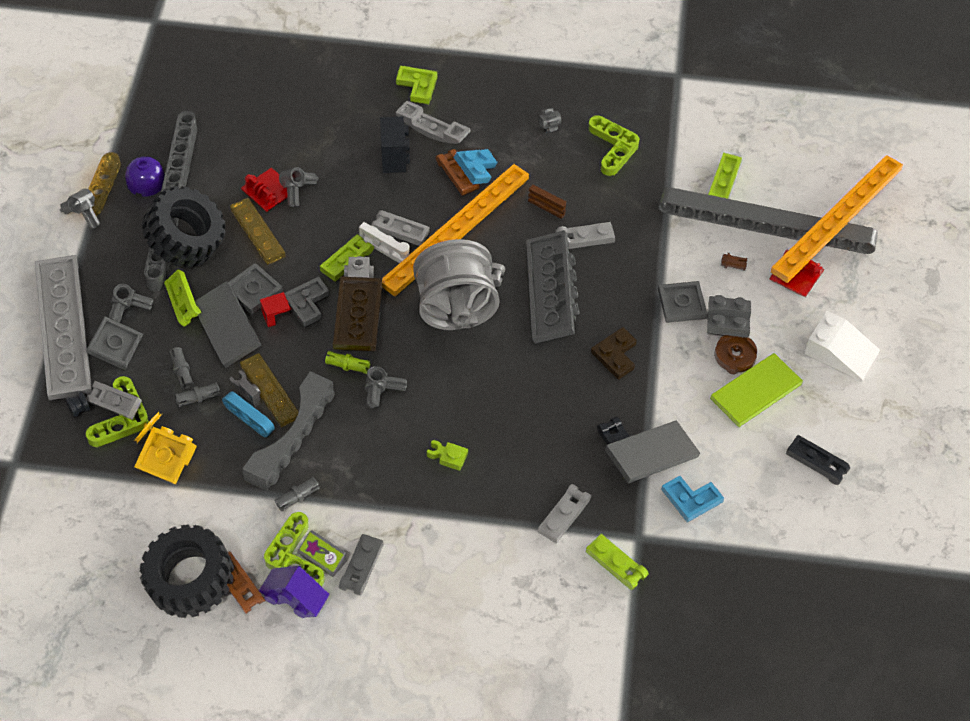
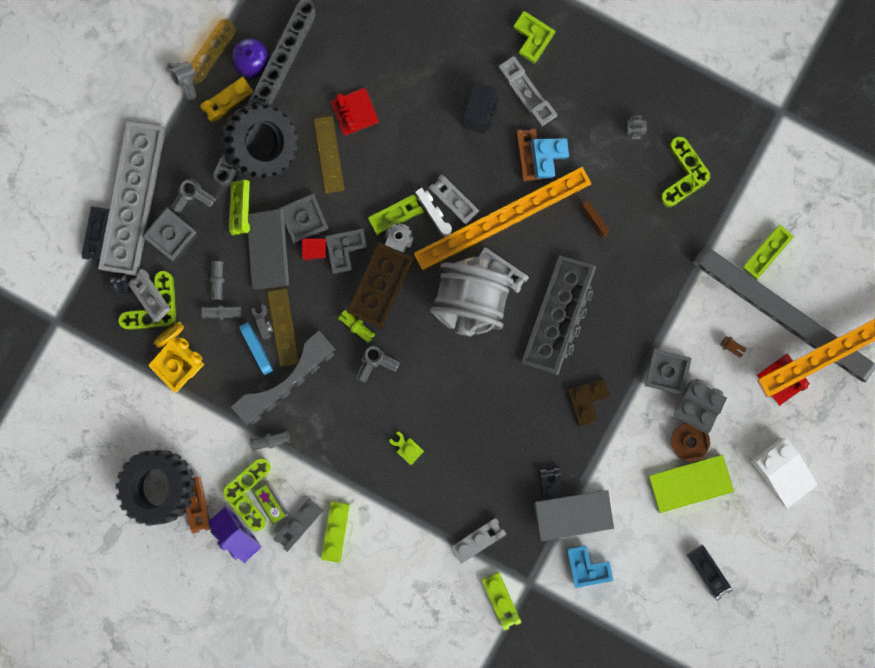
camera: 25 degrees right, 30 degrees up
(33, 367) = (95, 233): none -> black plate
(131, 218) = (227, 99): none -> yellow plate
(292, 180) = (378, 115): dark grey axle -> none
(405, 558) = (335, 532): none -> lime plate
(589, 235) = (616, 267): light grey plate -> none

